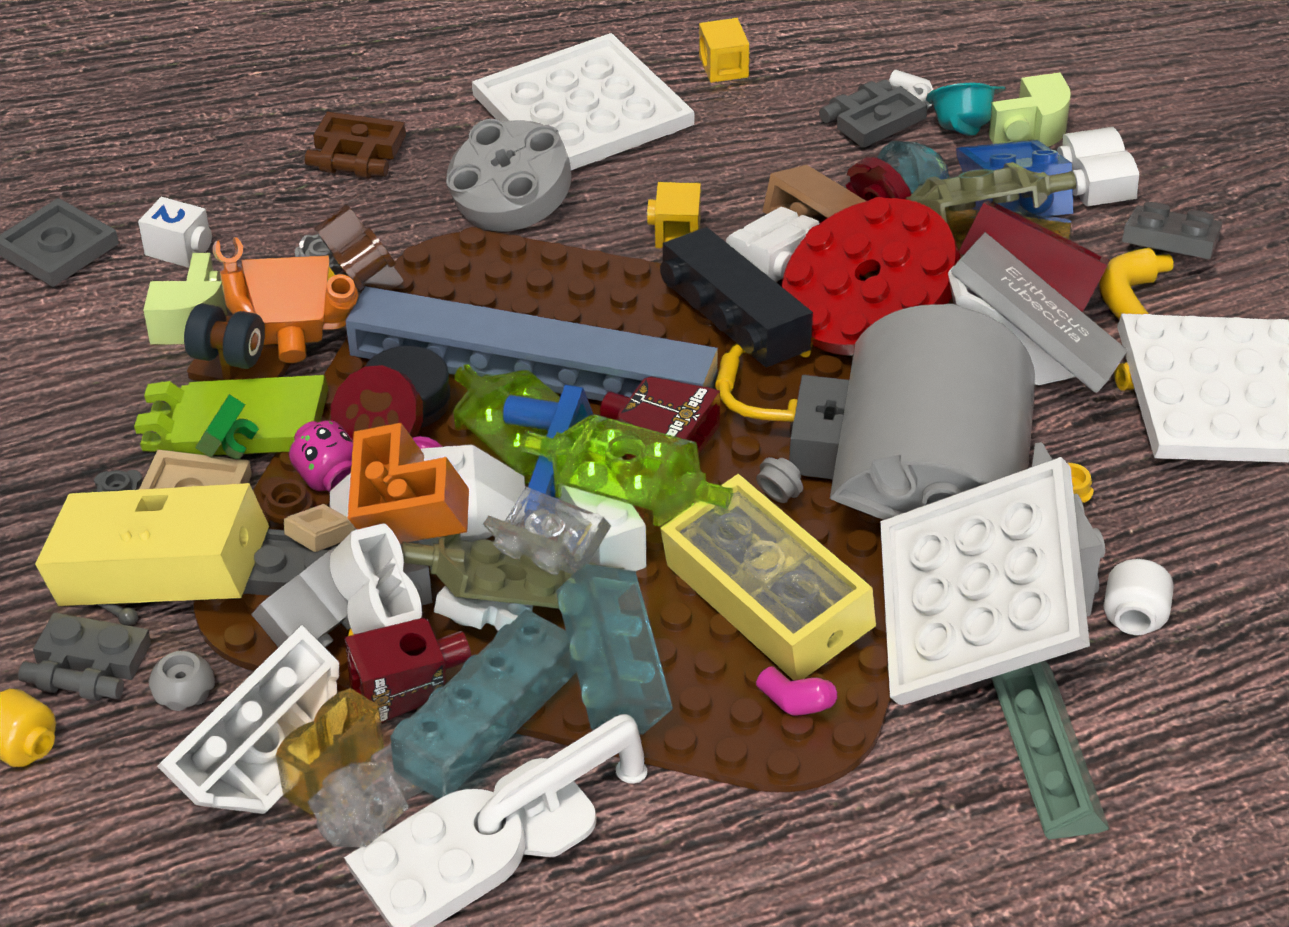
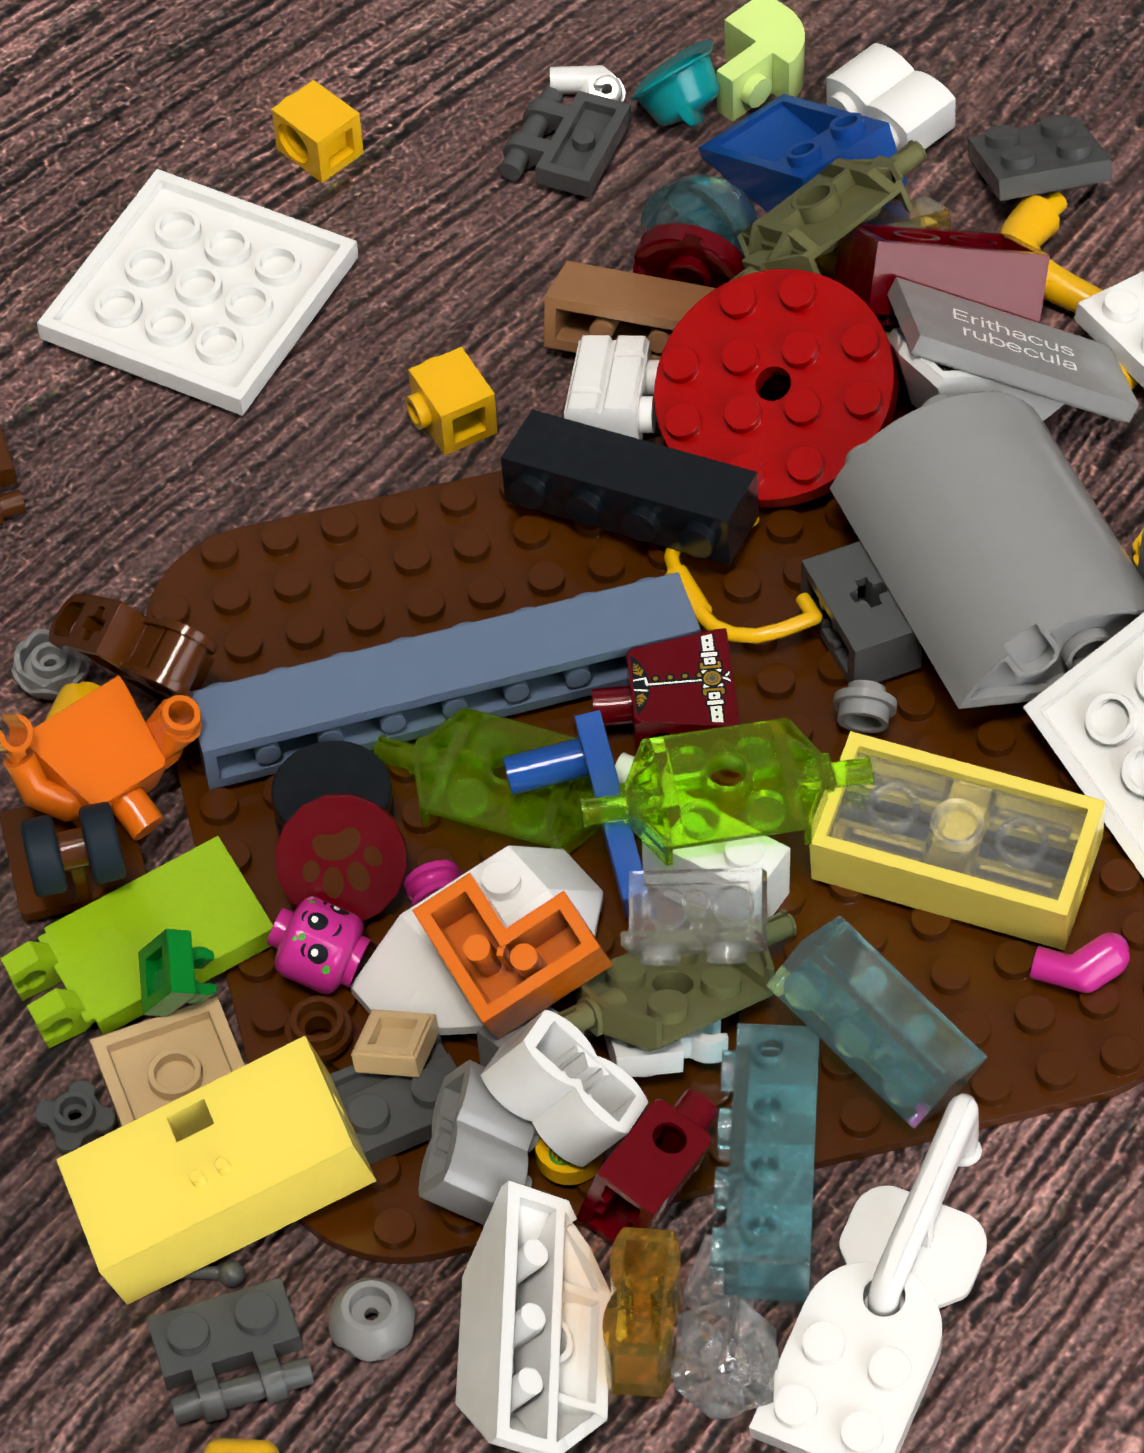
camera: 30 degrees left, 10 degrees up
(509, 174) = (206, 440): light grey piece -> none

